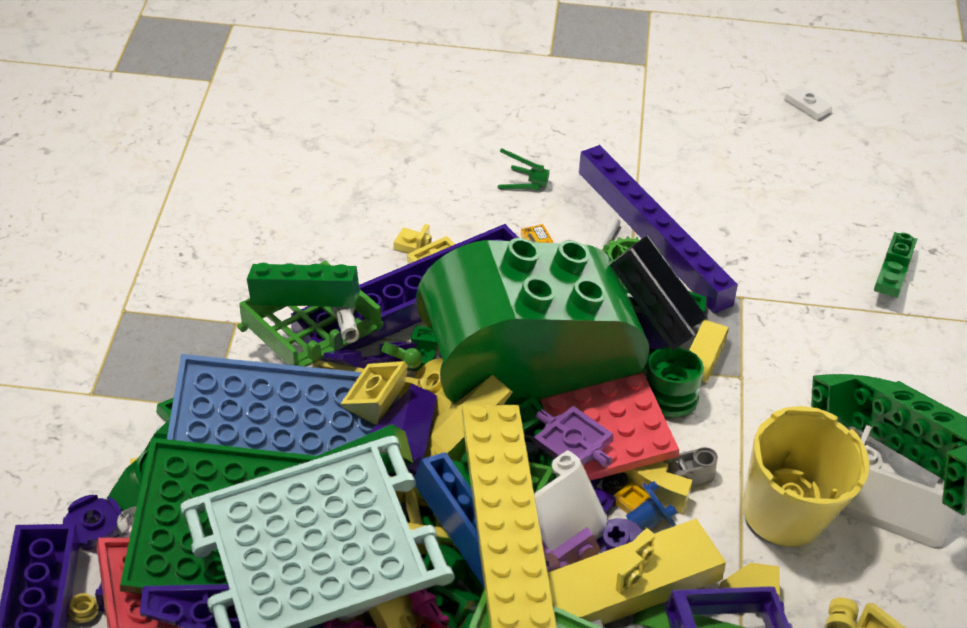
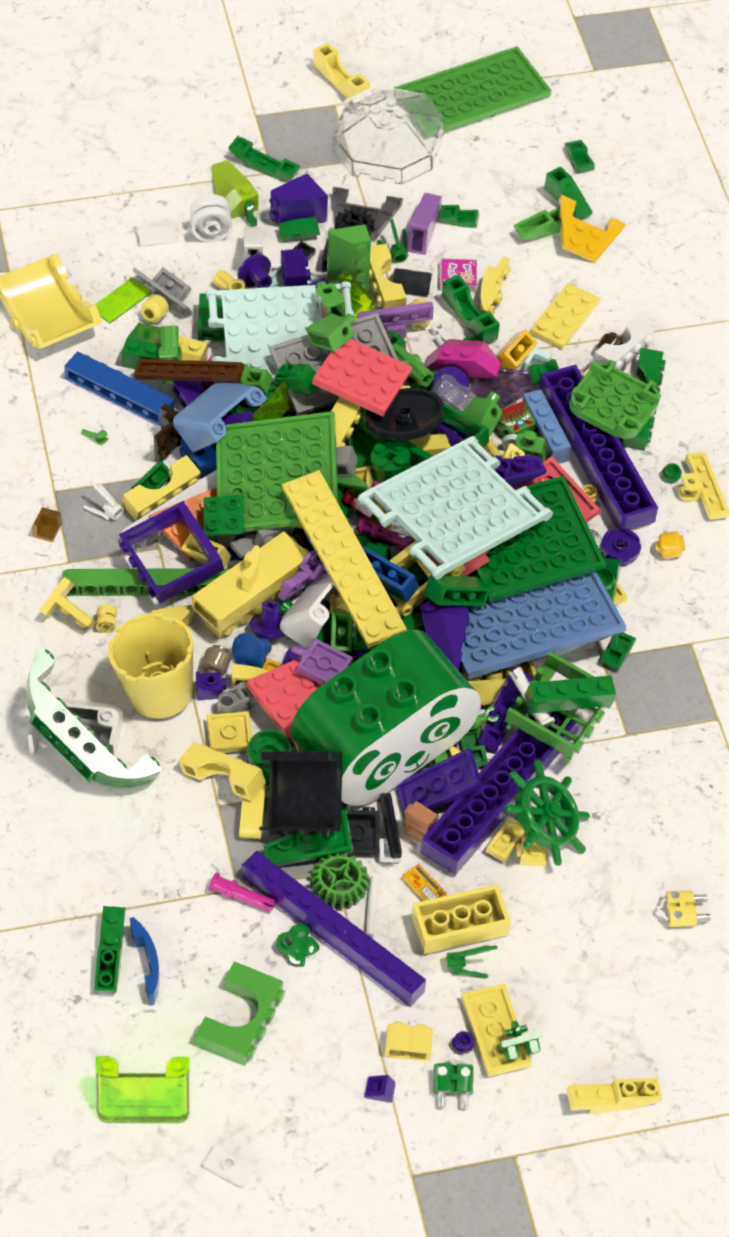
camera: 160 degrees right, 10 degrees up
(28, 499) = (670, 544): none -> yellow head
(290, 157) = (682, 909): none -> light yellow piece
(376, 390) = (477, 647): light yellow slope -> none
(386, 237) = (547, 812): none -> green piece
(439, 58) = (618, 1096): none -> light yellow slope
(513, 93) = (530, 1041): none -> hips
(520, 195) = (461, 919): none -> light yellow brick
(526, 123) = (489, 1016): none -> light yellow plate
(561, 123) = (465, 1037): none -> dark purple plate
(580, 99) = (453, 1079): none -> green piece
(613, 132) = (408, 1041): none -> light yellow brick
(652, 117) = (380, 1088): none -> dark purple slope
(699, 229) = (301, 944): none -> green plate
(708, 515) = (216, 659): none -> dark tan head
(711, 432) = (229, 731): none -> light yellow plate
(719, 496) = (209, 685): none -> dark purple brick
(747, 402) = (201, 762): none -> light yellow arch
(752, 288) = (232, 889): none -> dark pink pin
(775, 169) = (240, 1041): none -> bright green arch
(857, 268) = (142, 938): none -> blue slope
(884, 145) = (143, 1096): none -> clear neon green windscreen

